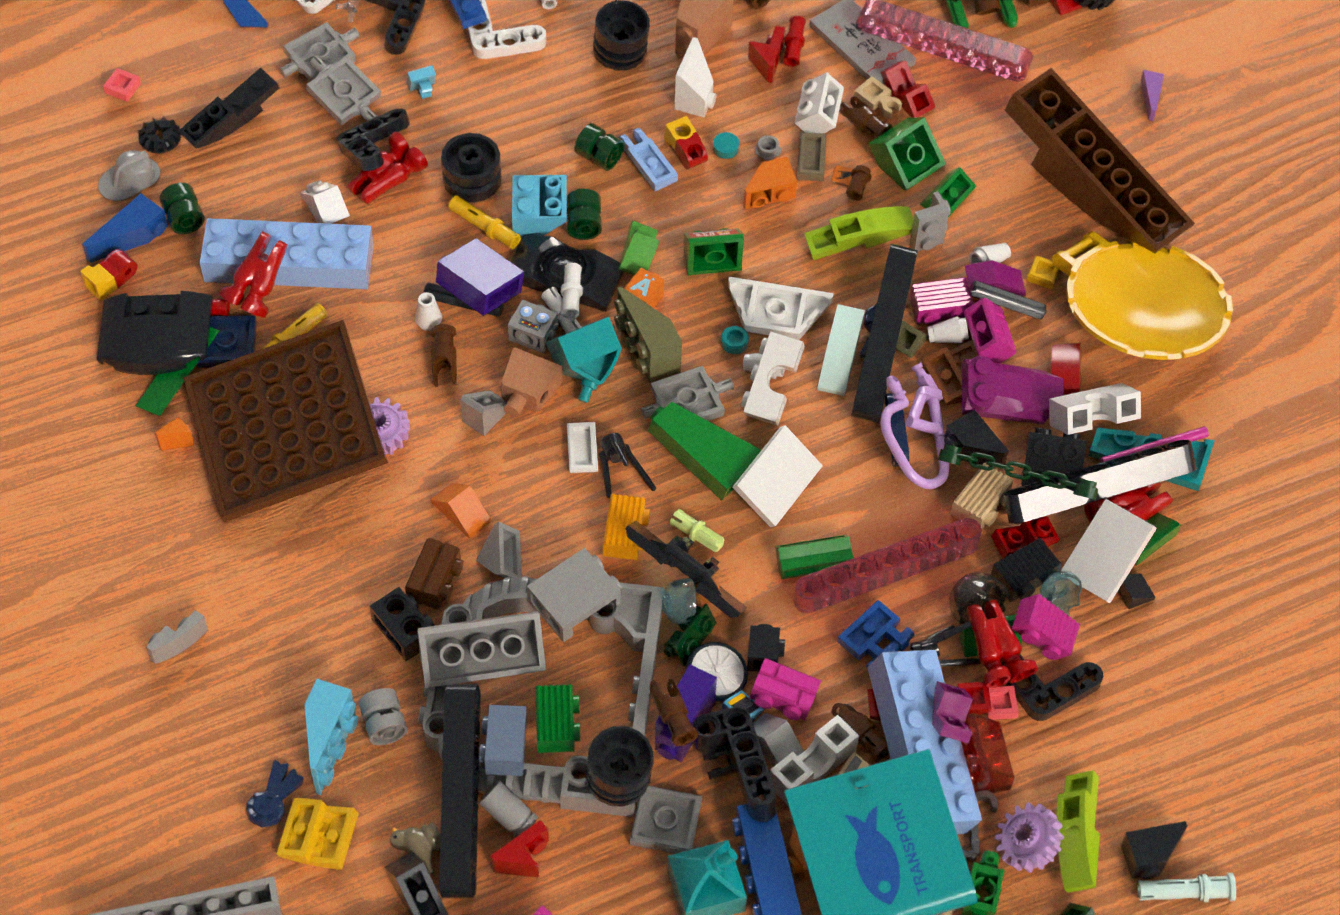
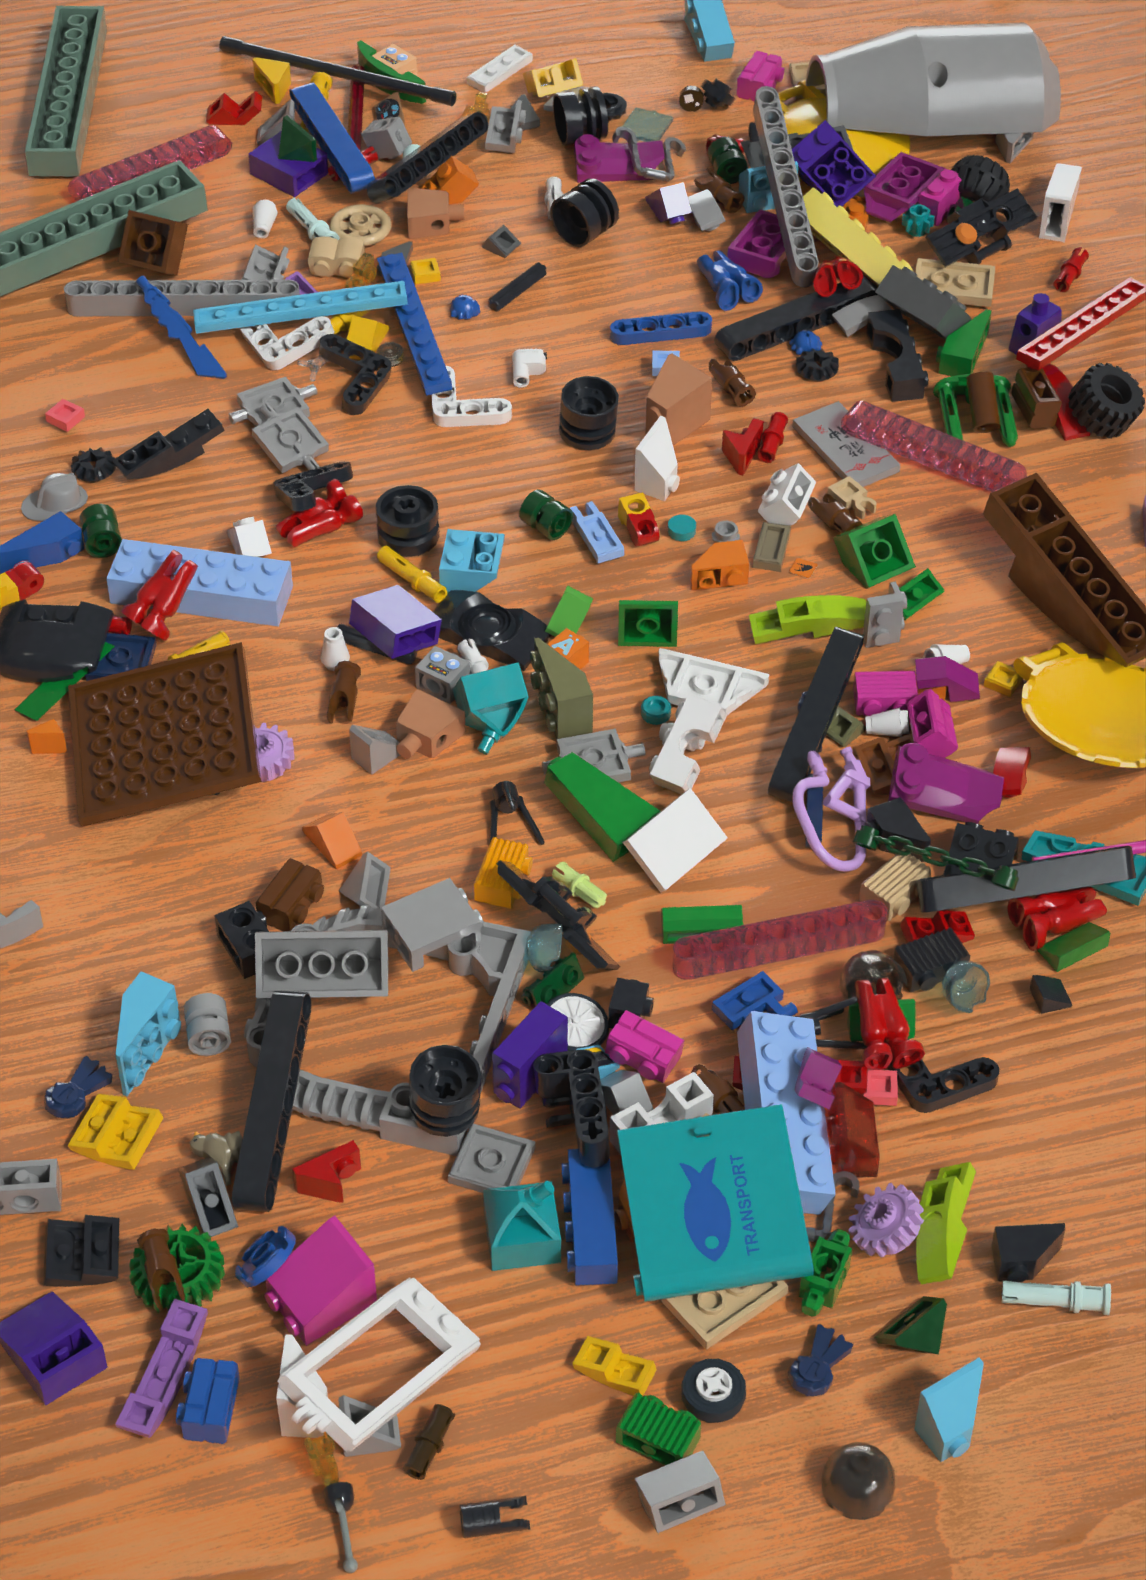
camera: 10 degrees right, 10 degrees down
(422, 80) = (373, 437): medium azure tile -> none
(504, 741) = (328, 1055): sand blue brick -> none
(507, 809) = (319, 1125): light grey piece -> none
(555, 718) = (387, 1041): green brick -> none
(571, 290) = (488, 642): white pin -> none
(582, 447) = (472, 795): white tile -> none
(584, 214) = (517, 575): dark green wheel -> none
(673, 713) = (512, 1044): reddish brown piece -> none
(841, 350) = (768, 728): light aqua slope -> none
(860, 177) = (820, 568): reddish brown pin -> none
(914, 97) = (882, 489): red slope -> none
(1008, 300) = (958, 698): axle -> none
(1046, 627) = (941, 1014): dark pink brick -> none
(1076, 411) = (1019, 808): white arch -> none
(1109, 550) = (1025, 946): white tile -> none

